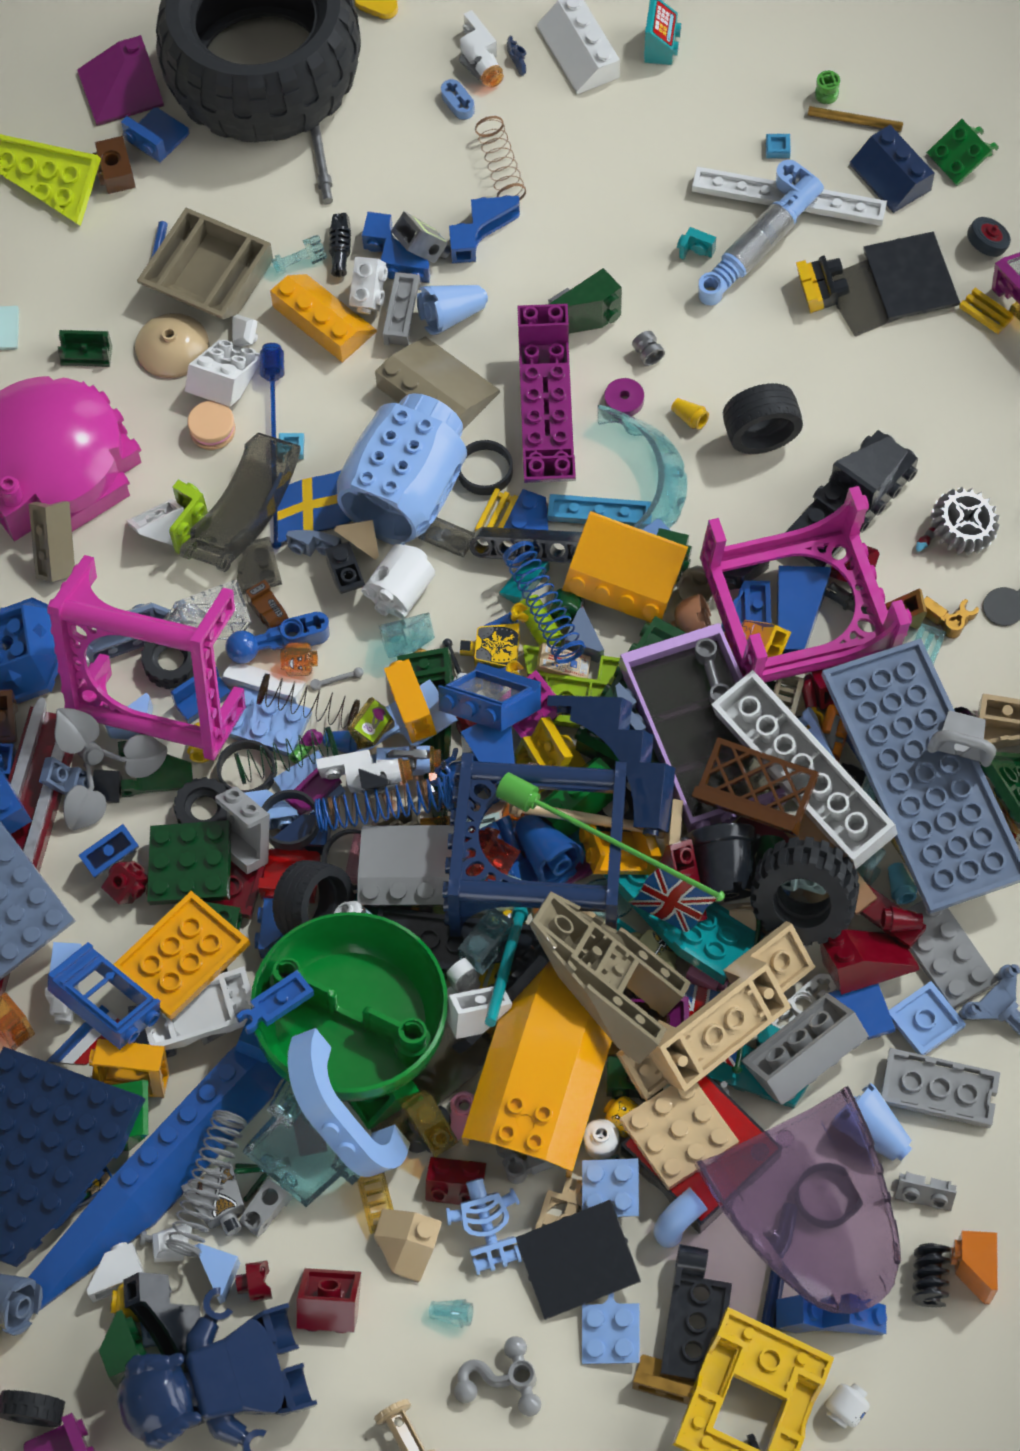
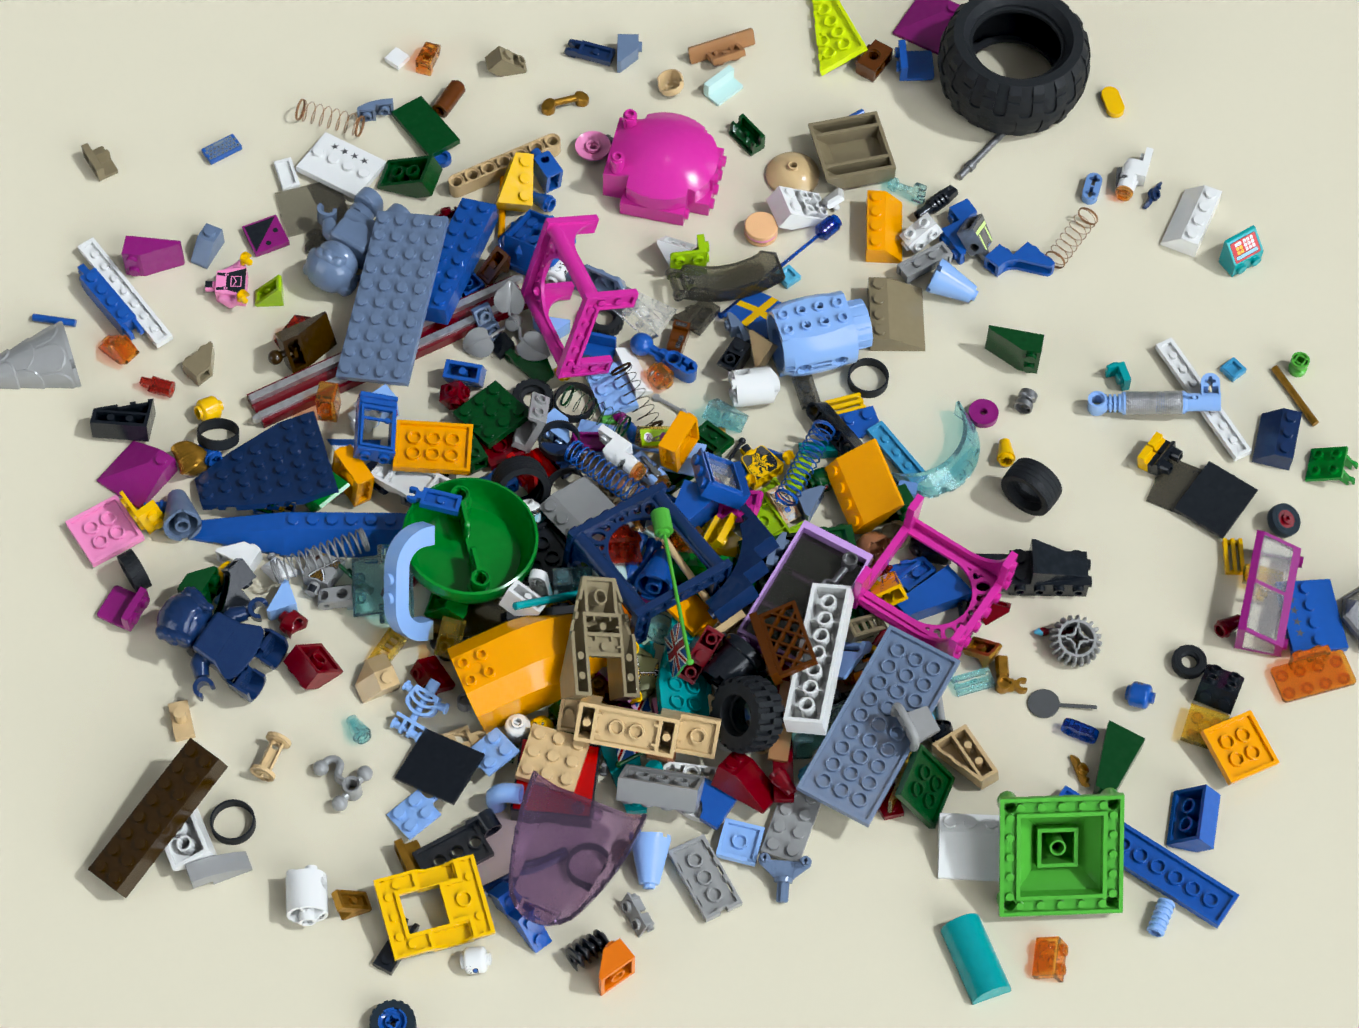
camera: 45 degrees right, 5 degrees down
(52, 540) = (615, 207): dark tan panel -> none
(371, 780) = (612, 456): black slope -> none
(545, 393) = (937, 373): magenta slope -> none

